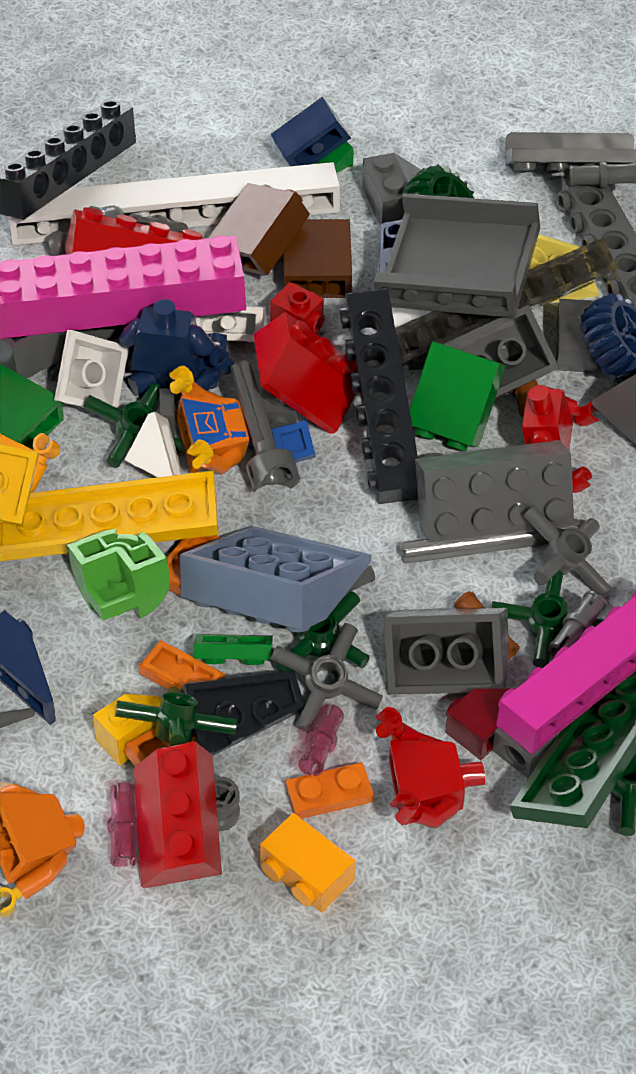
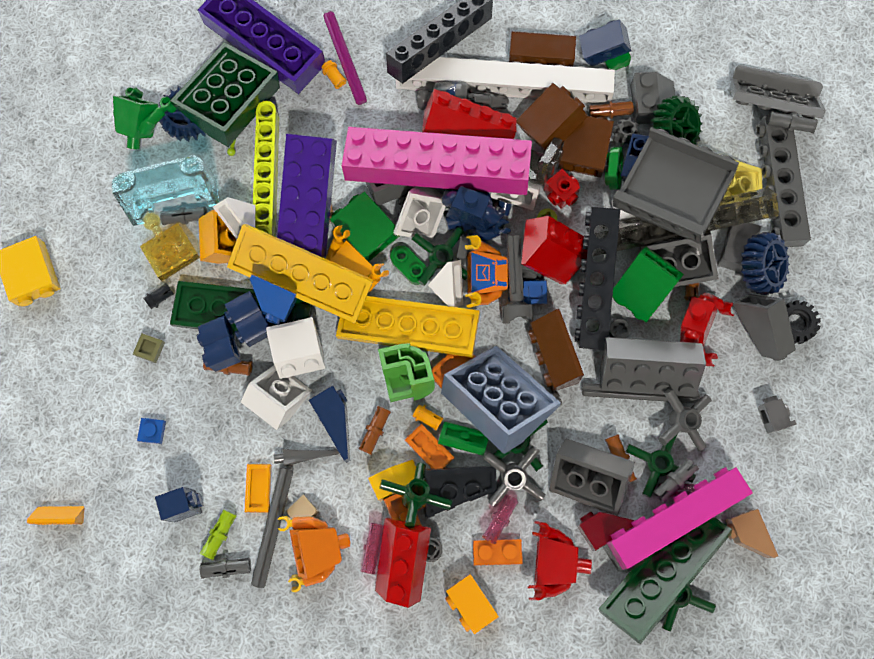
camera: 20 degrees right, 25 degrees up
(85, 449) = (407, 264): none -> green plate
(86, 666) = (374, 430): none -> dark orange pin
(171, 633) = (427, 417): none -> light orange pin
(220, 155) = (542, 48): none -> reddish brown brick
(268, 269) = (544, 164): none -> clear smoke bracket
(345, 500) = (555, 351): none -> reddish brown slope
(354, 211) = (611, 109): none -> dark orange axle
(365, 270) = (615, 160): none -> green plate
(368, 233) = (626, 125): none -> dark grey gear

